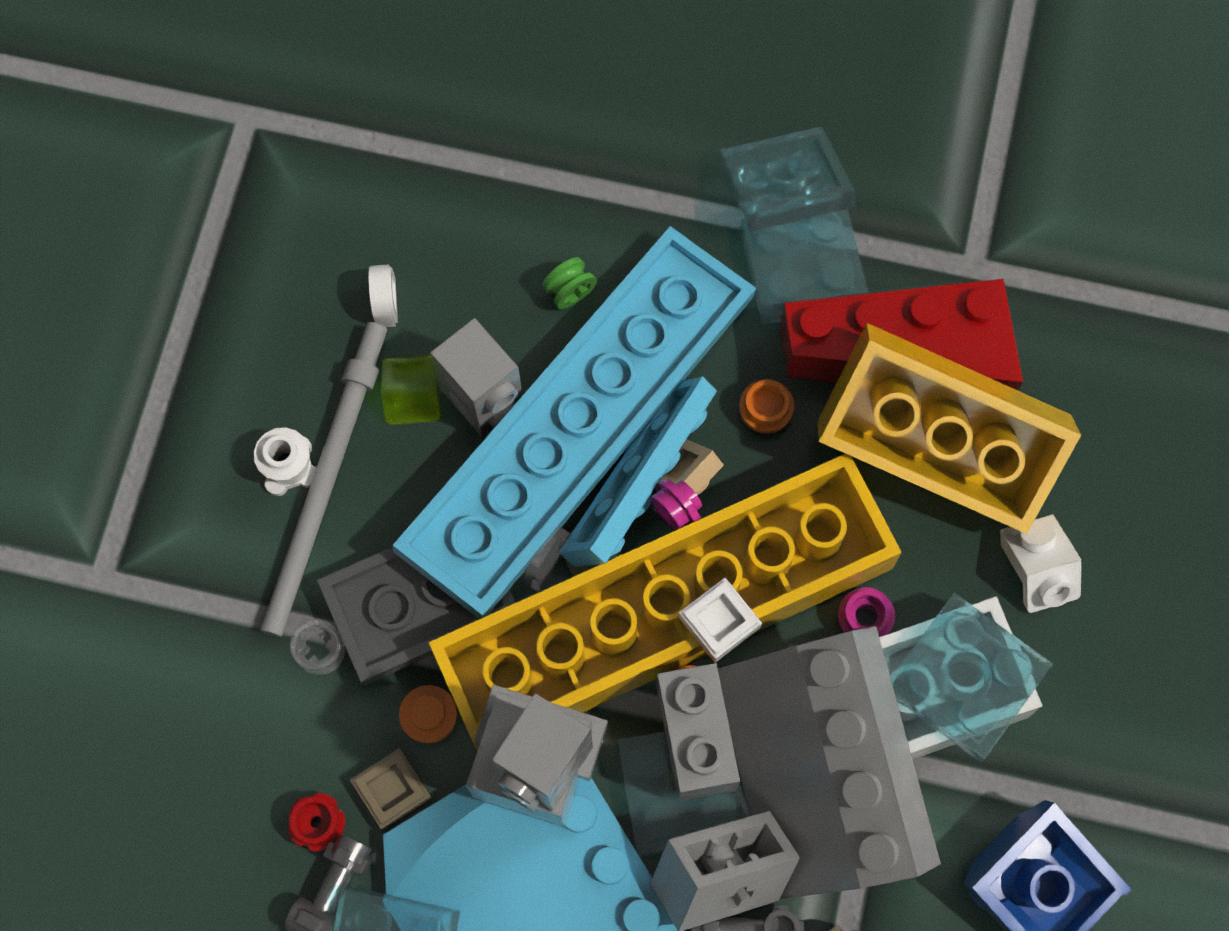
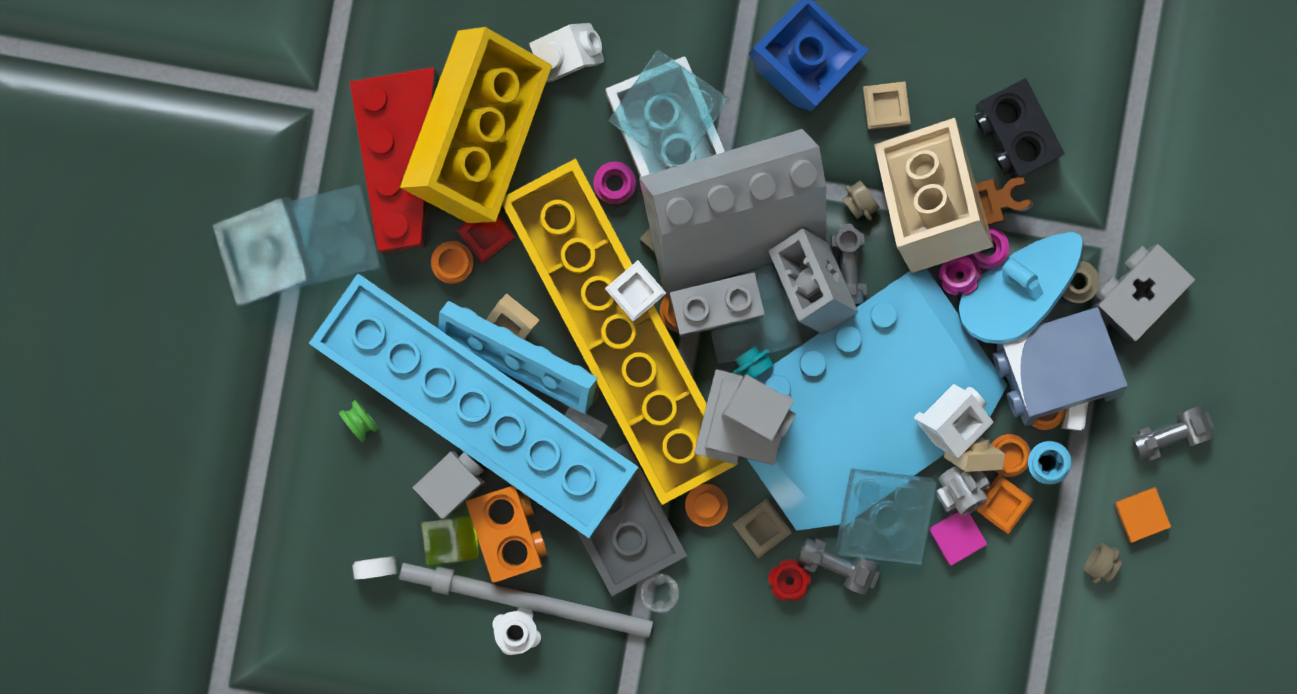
camera: 95 degrees left, 15 degrees up
(409, 437) = (495, 536): none -> orange brick
(614, 782) = (753, 362): none -> teal plate
(676, 503) = (544, 326): dark pink plate -> none
(798, 447) = (486, 237): none -> red tile

